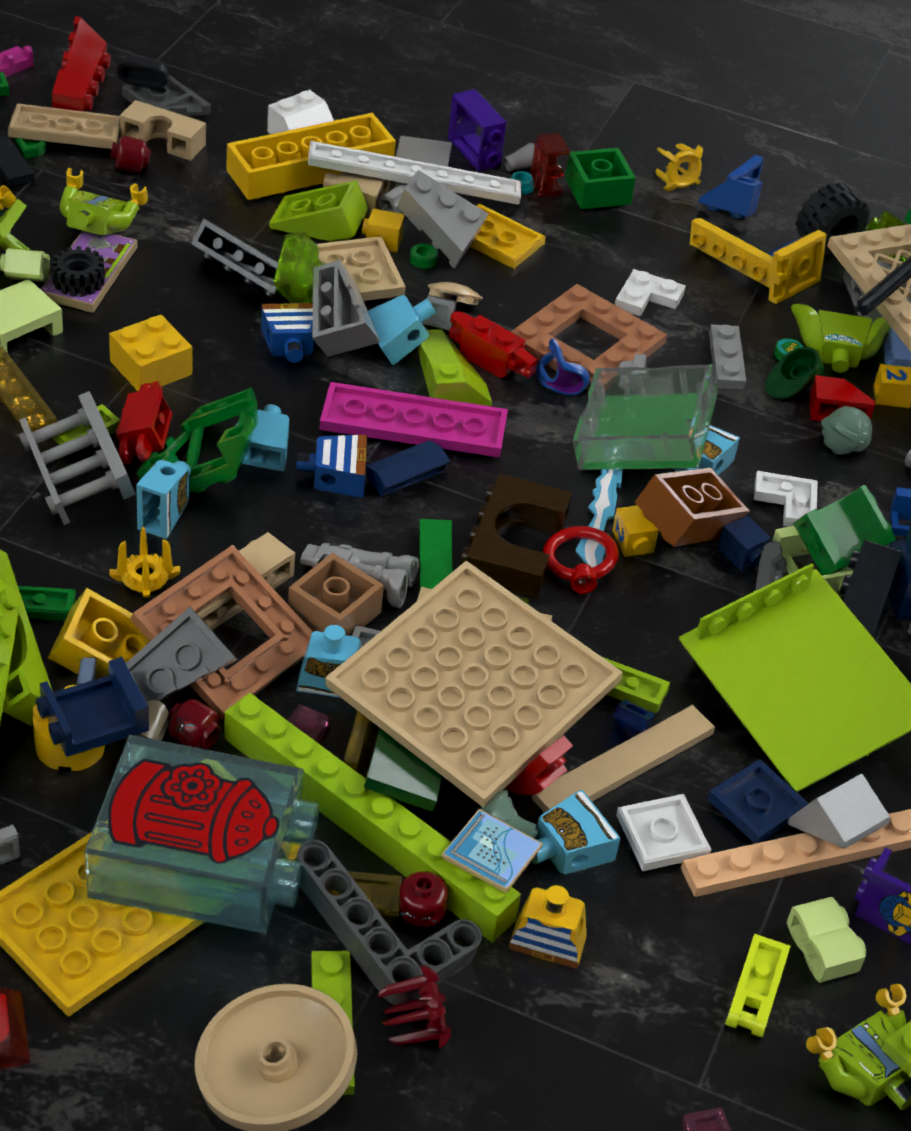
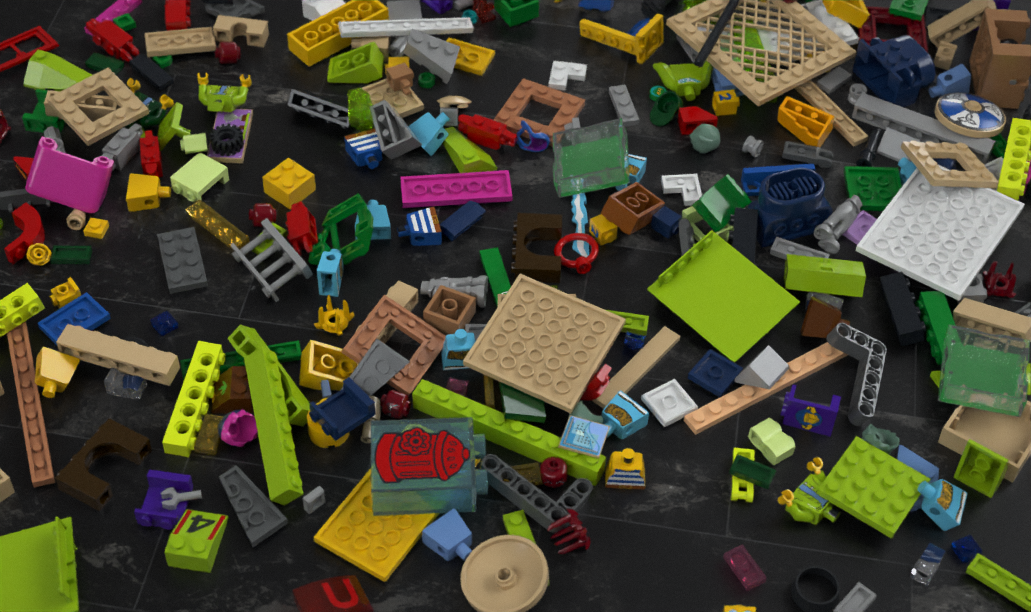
camera: 10 degrees left, 5 degrees up
(95, 382) = (261, 212): none -> dark red head
(204, 964) = (448, 536): none -> medium blue torso
(380, 240) = (400, 78): none -> medium nougat brick
(776, 983) = (752, 471): none -> dark green tile

